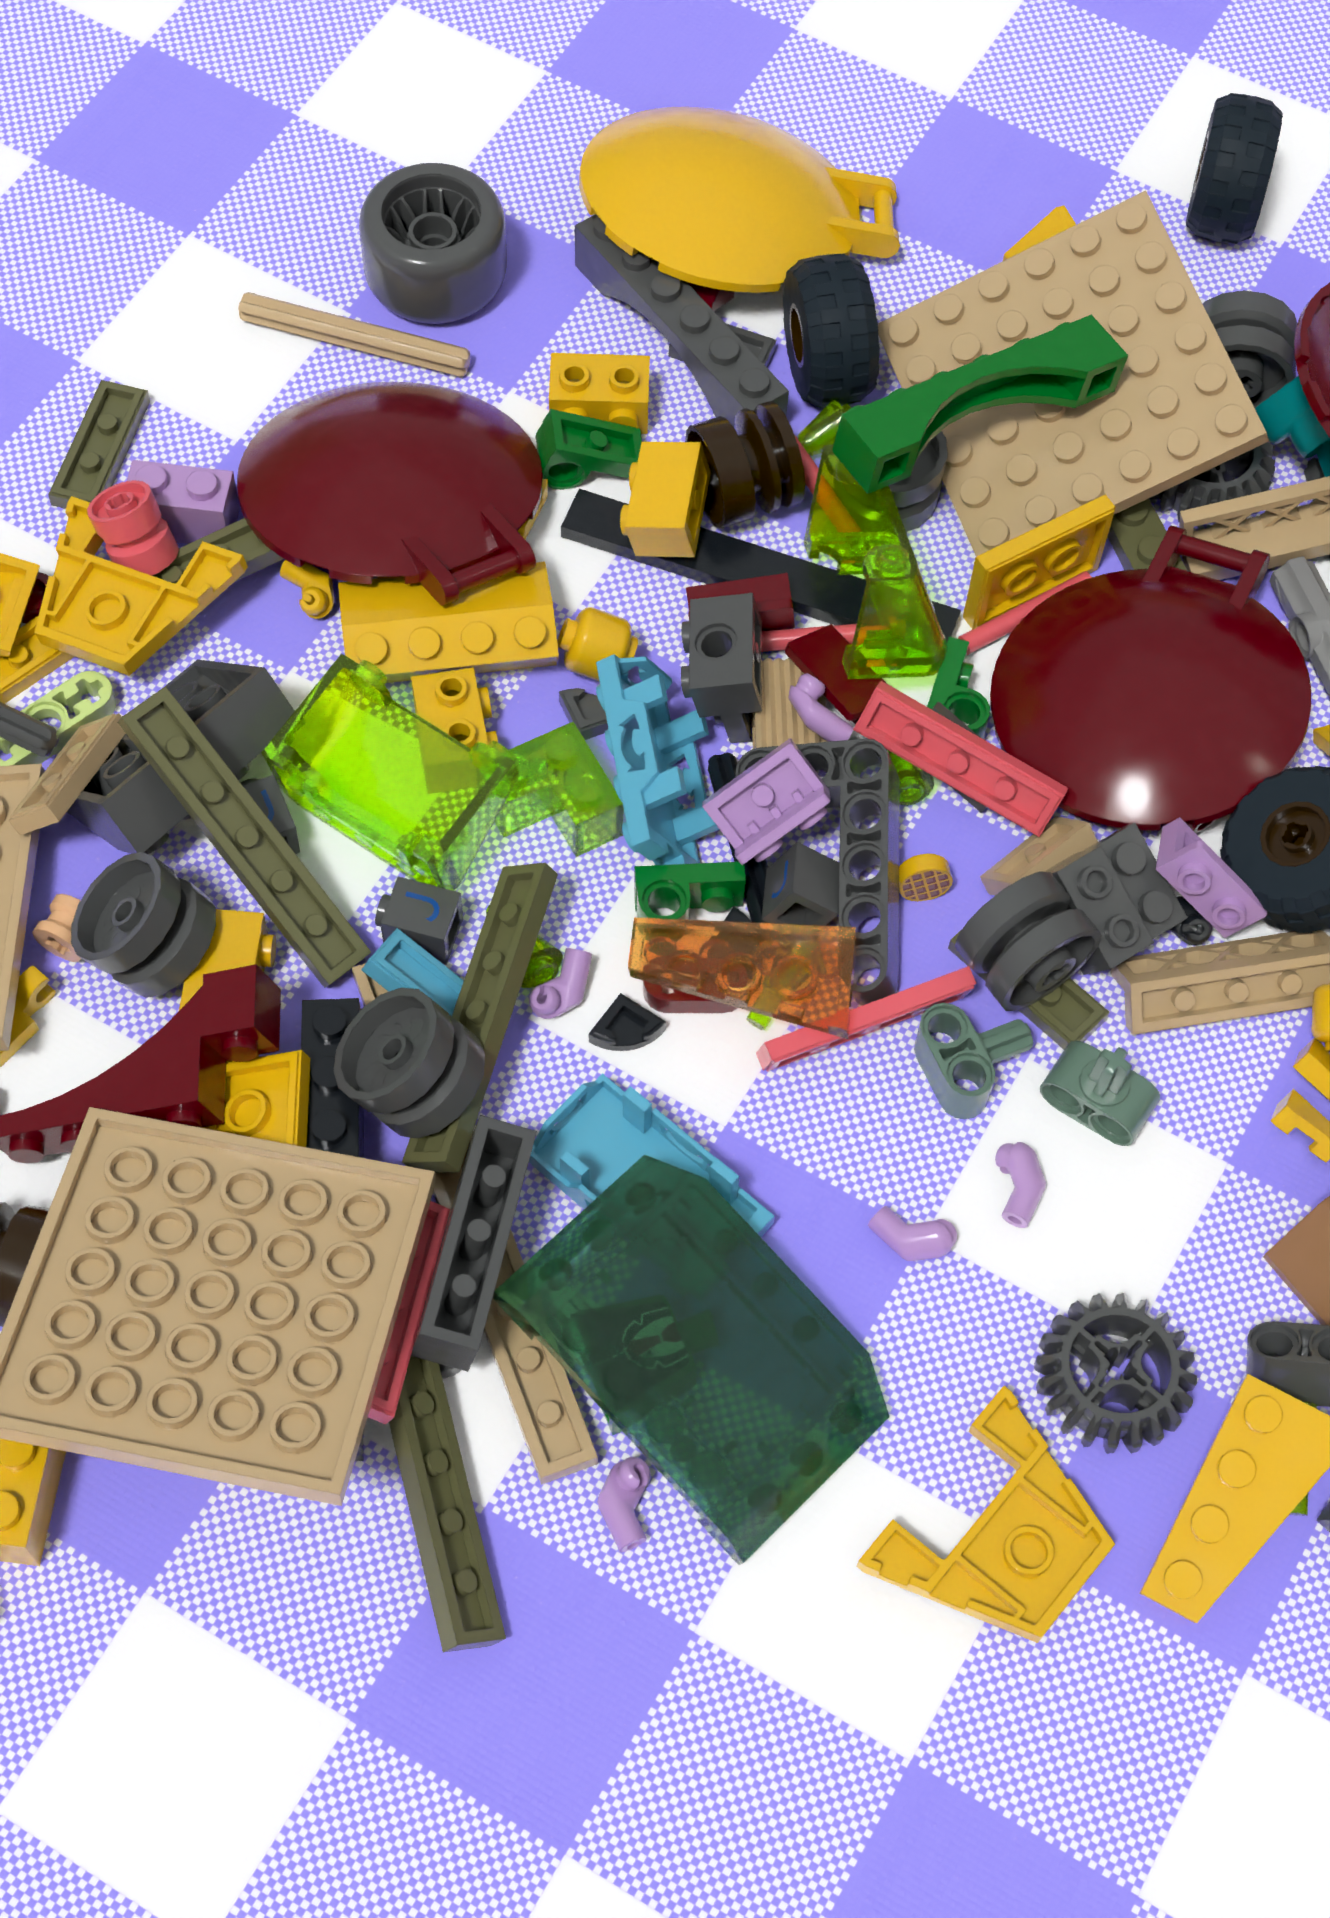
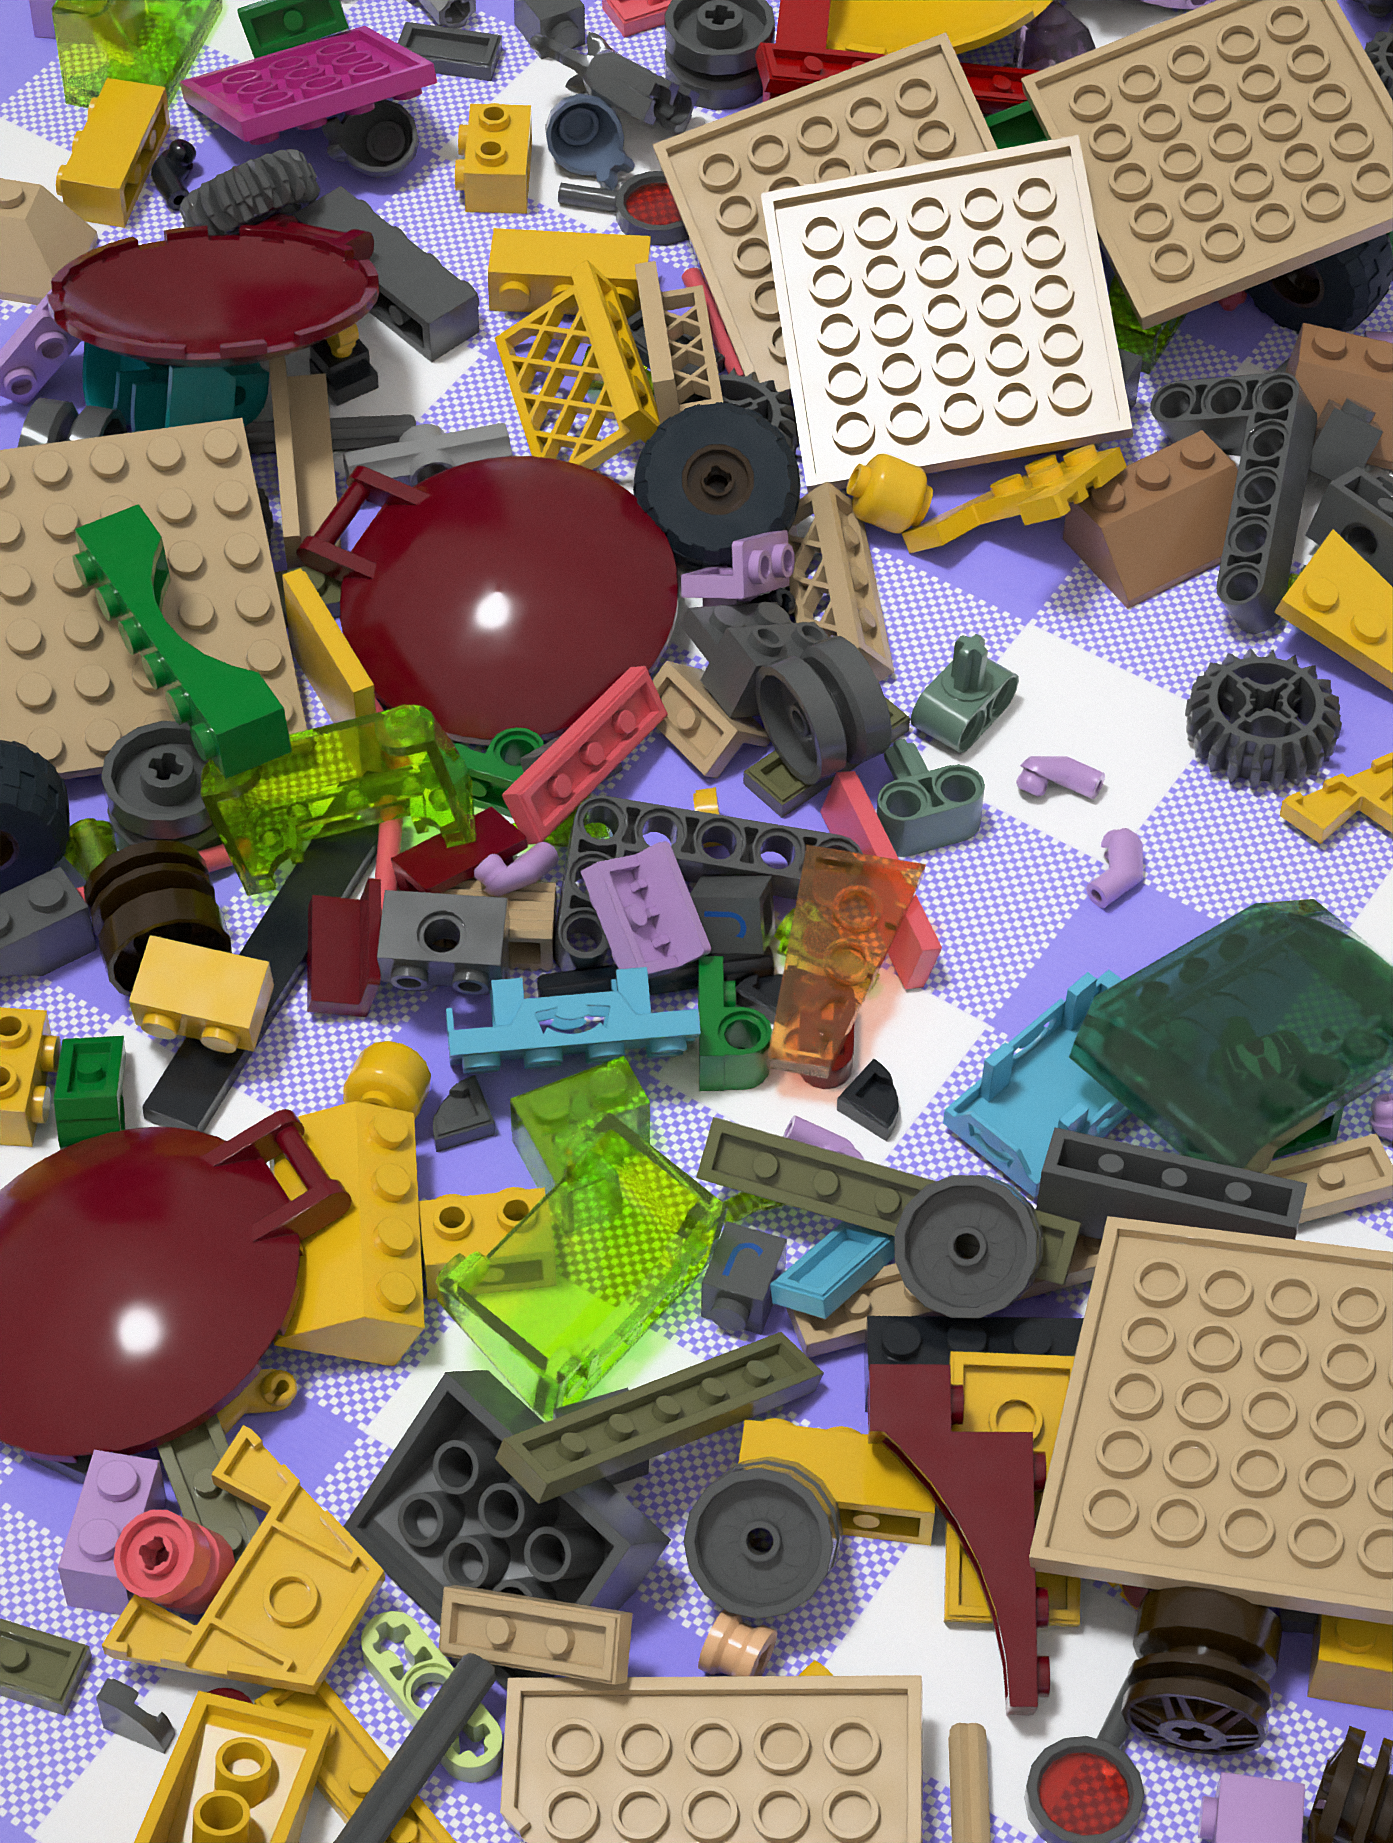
camera: 85 degrees left, 10 degrees down
(34, 533) = (128, 1720): none -> dark grey tile

